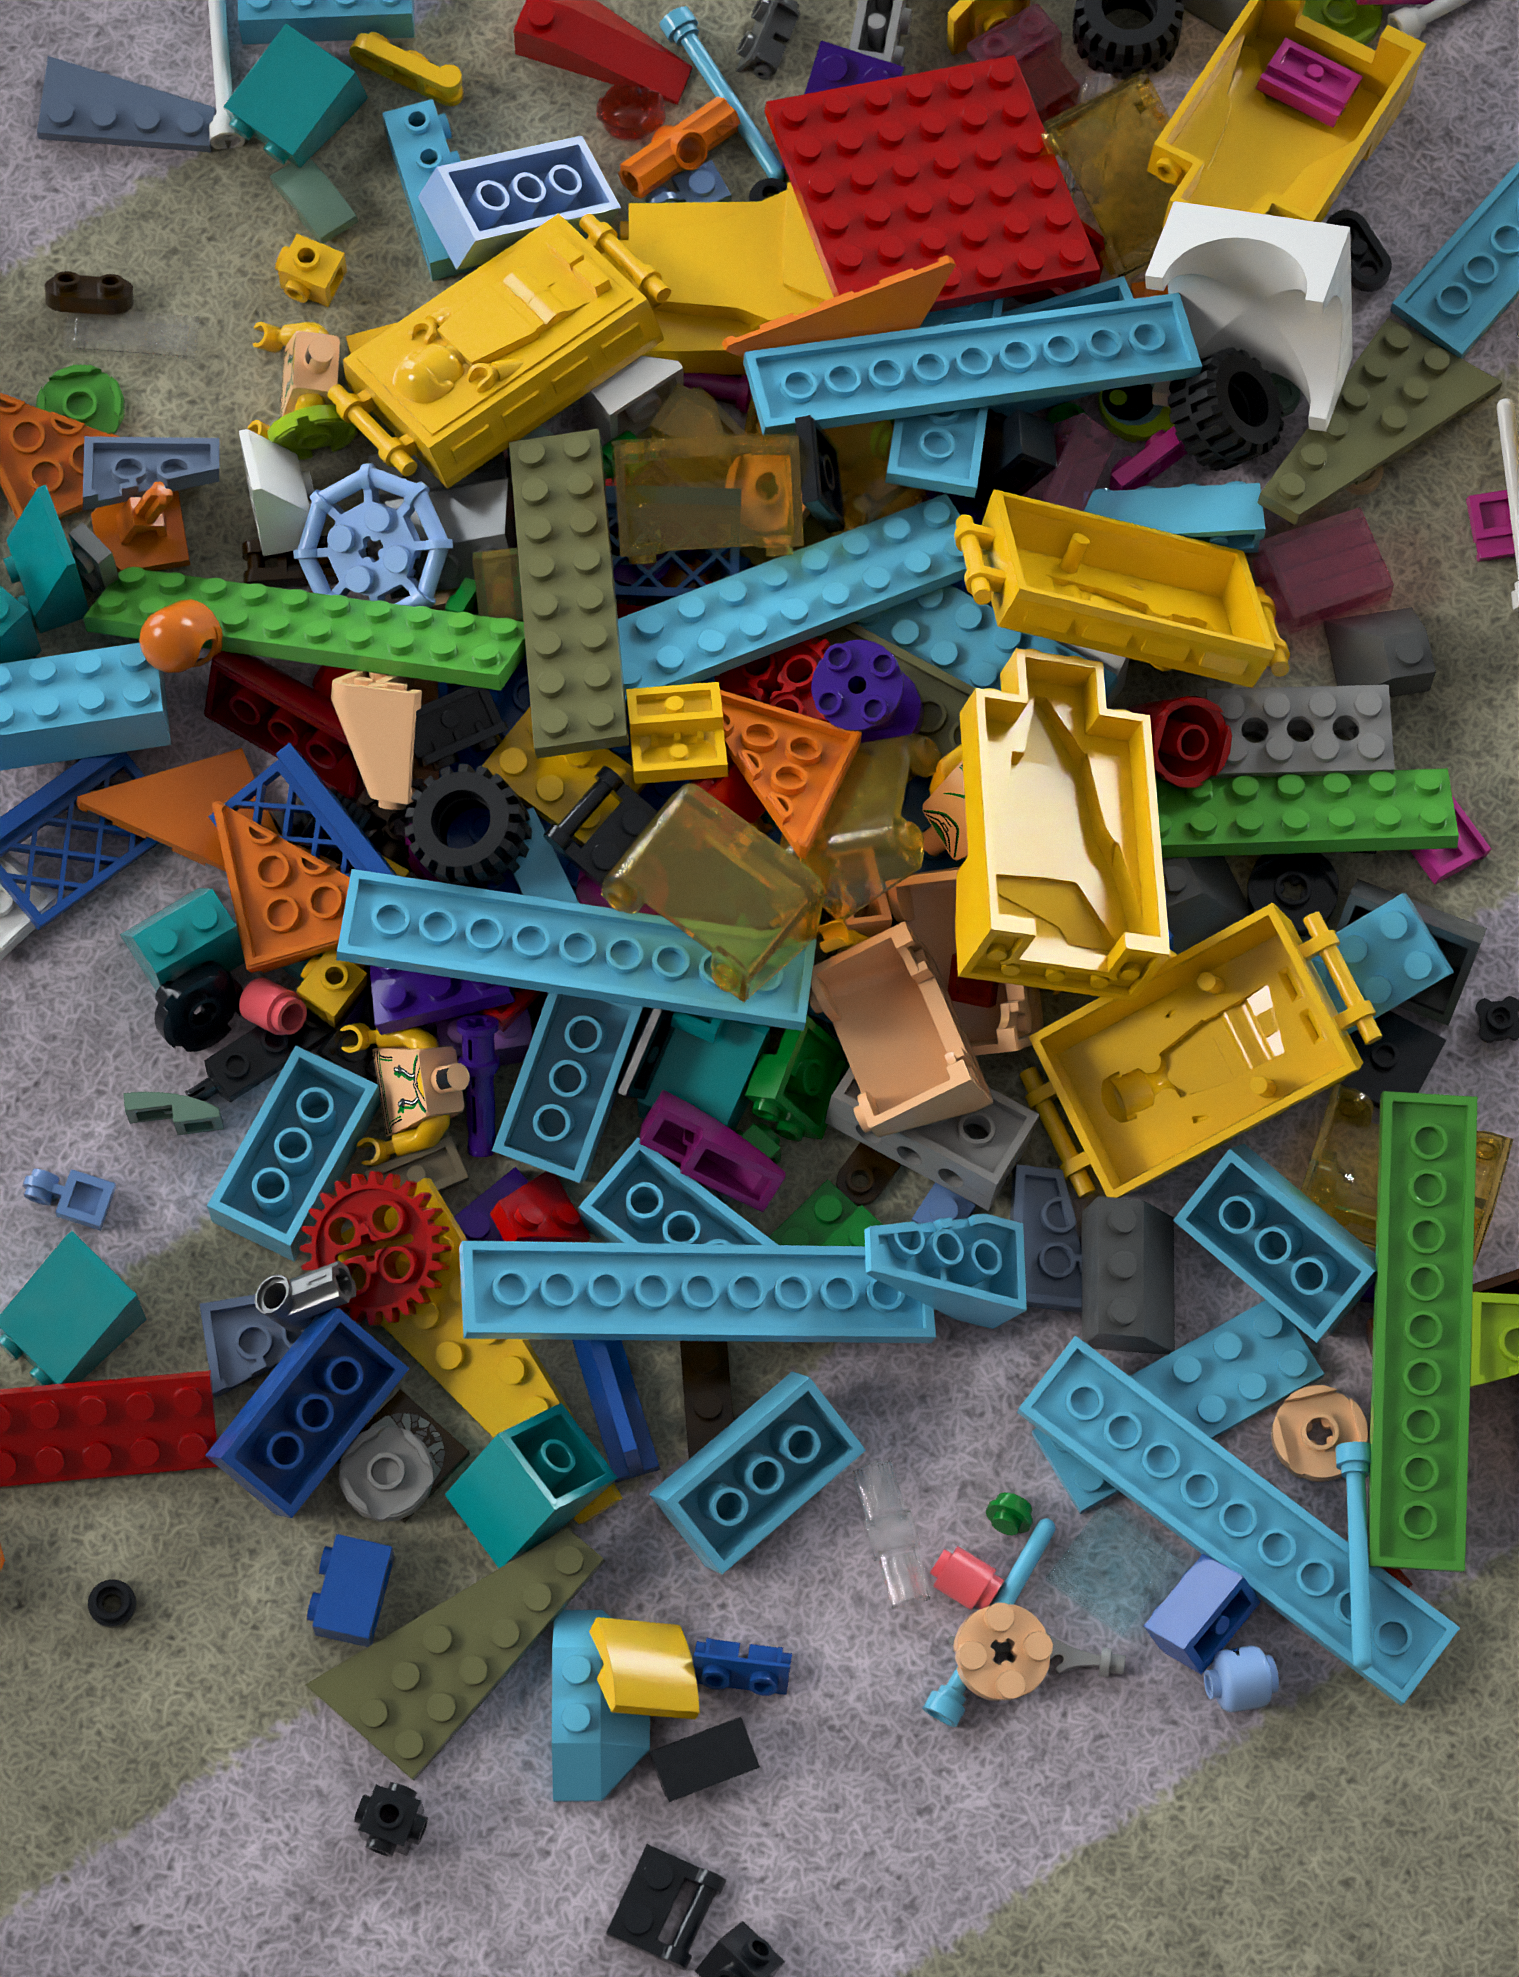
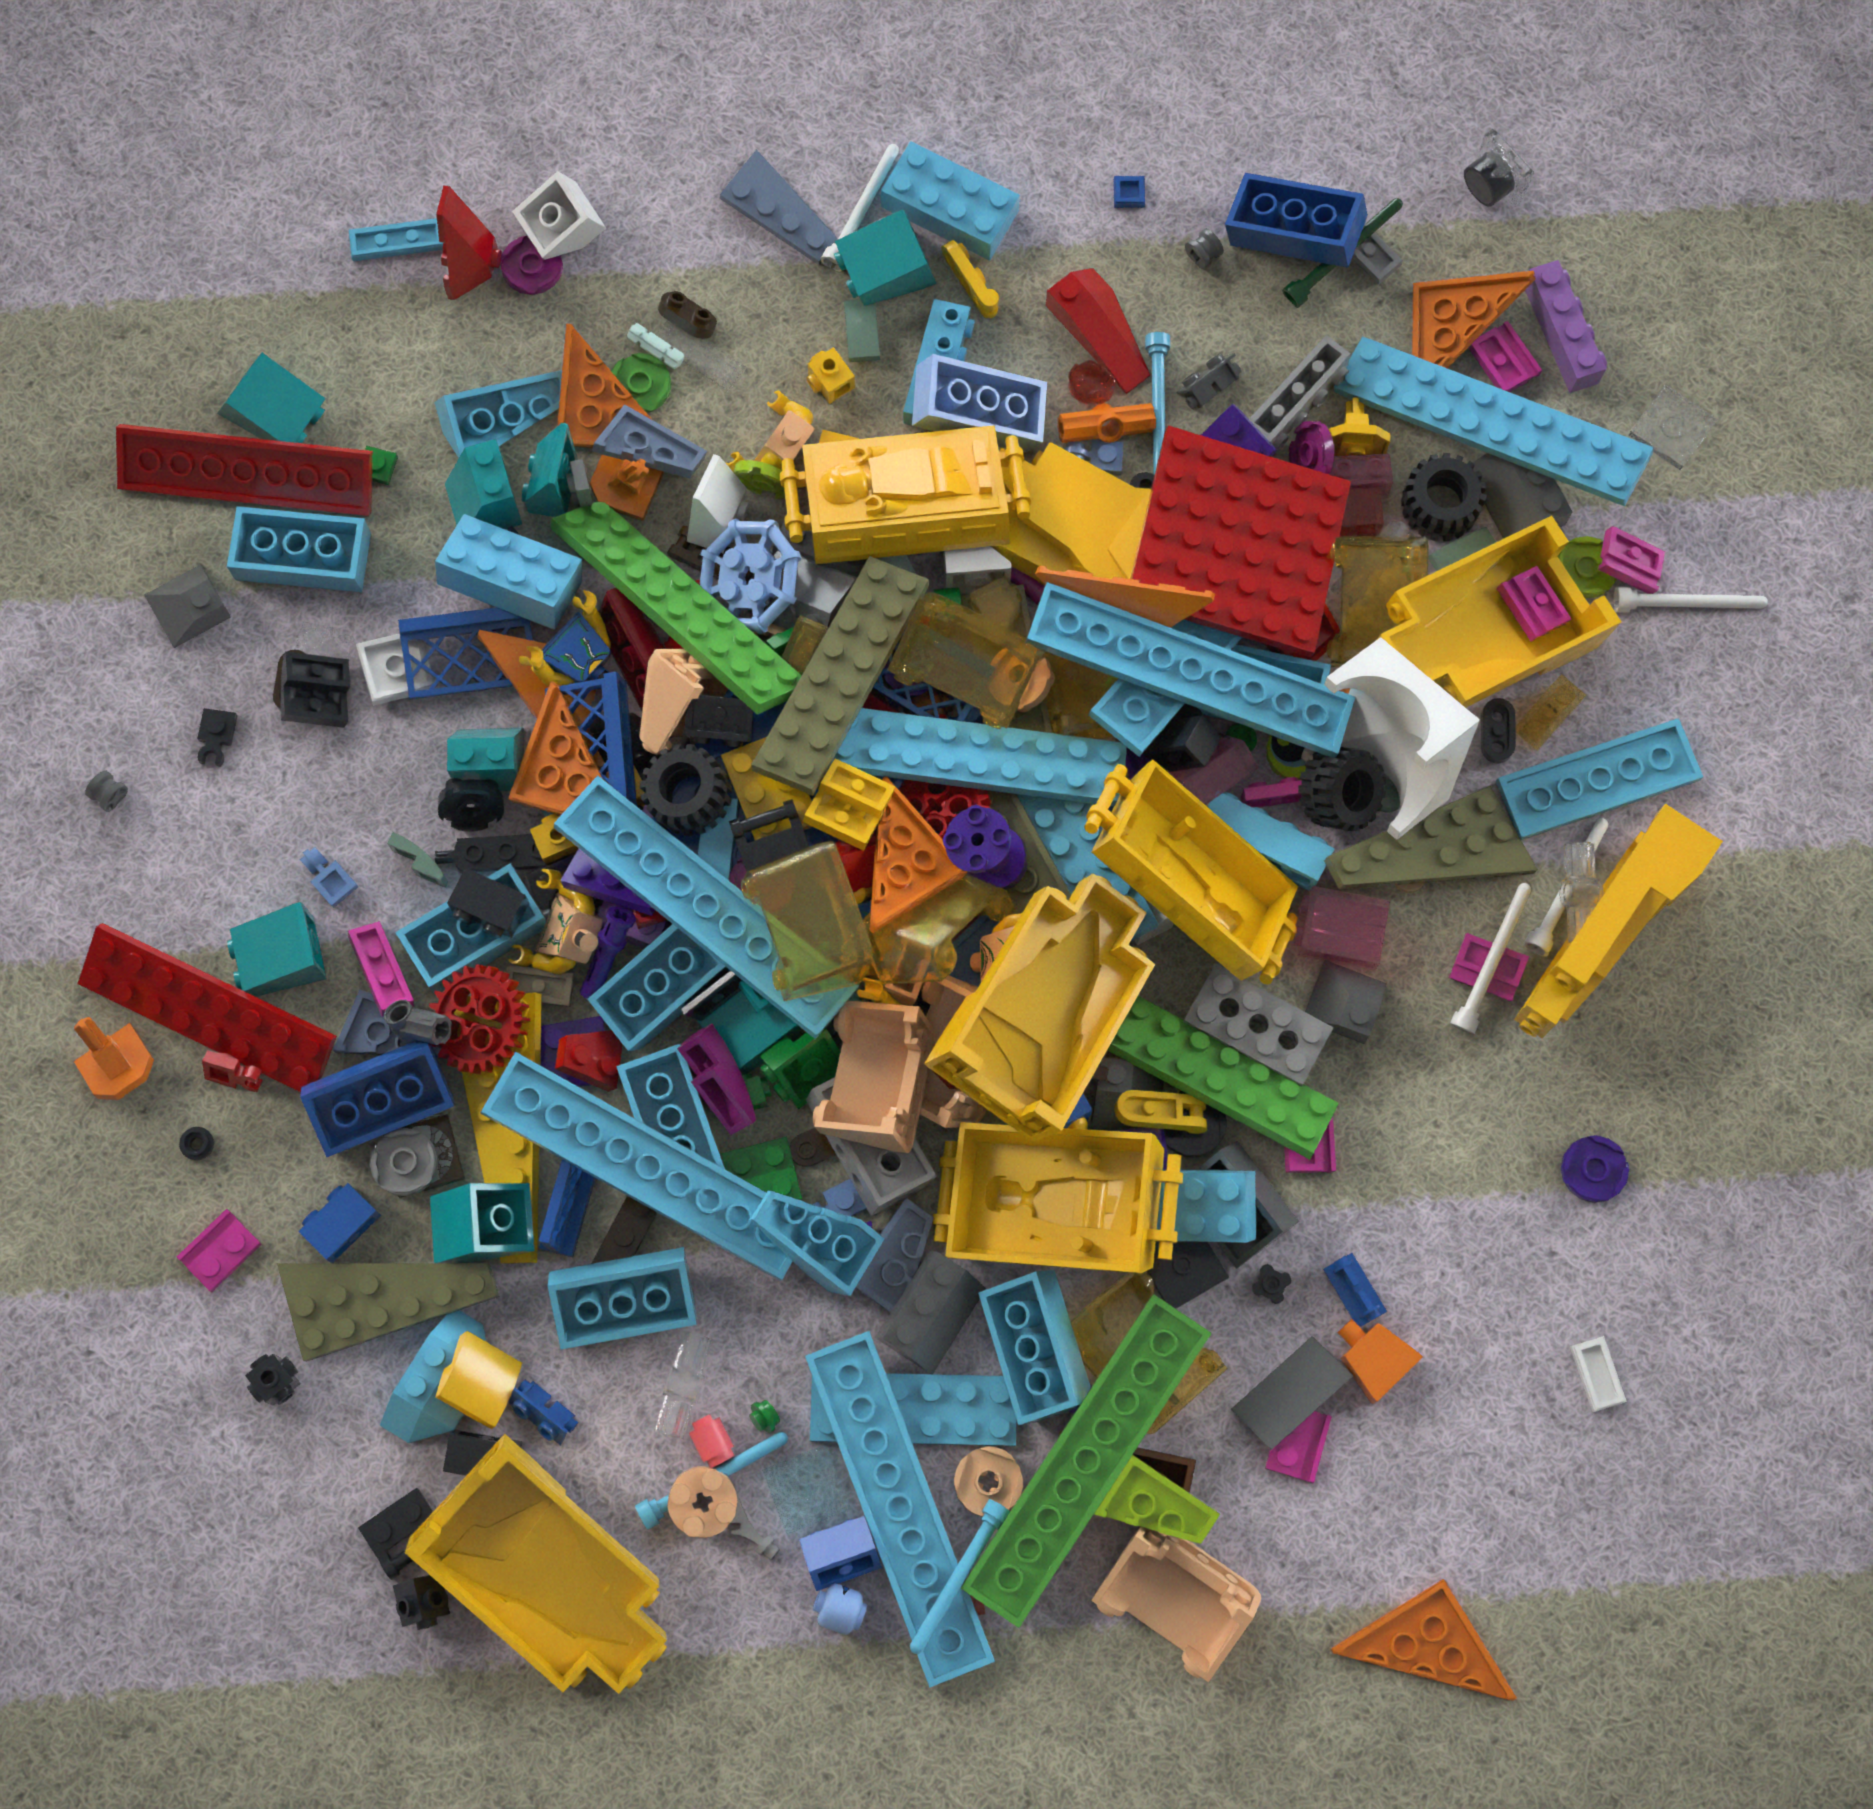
camera: 30 degrees right, 5 degrees up
(74, 351) = (655, 346): none -> light aqua axle
(97, 1494) = (227, 1071): none -> red plate
(175, 636) = (592, 561): orange helmet -> none
(206, 1262) = (379, 965): none -> dark pink plate
(213, 752) = (576, 650): none -> torso
(222, 1712) = (219, 1250): none -> dark pink plate
(272, 1007) = (513, 830): coral brick -> none
(303, 1103) = (488, 904): none -> black brick
(820, 474) = (1047, 687): black plate -> none
(866, 1839) = (541, 1572): none -> yellow panel
(942, 40) = (1312, 447): none -> magenta tile
(1186, 68) = (1461, 548): none -> sand green slope
(1187, 739) = (1175, 987): red cone -> none
(1251, 889) = (1161, 1111): none -> yellow plate
(1404, 196) = (1550, 712): none -> clear yellow slope

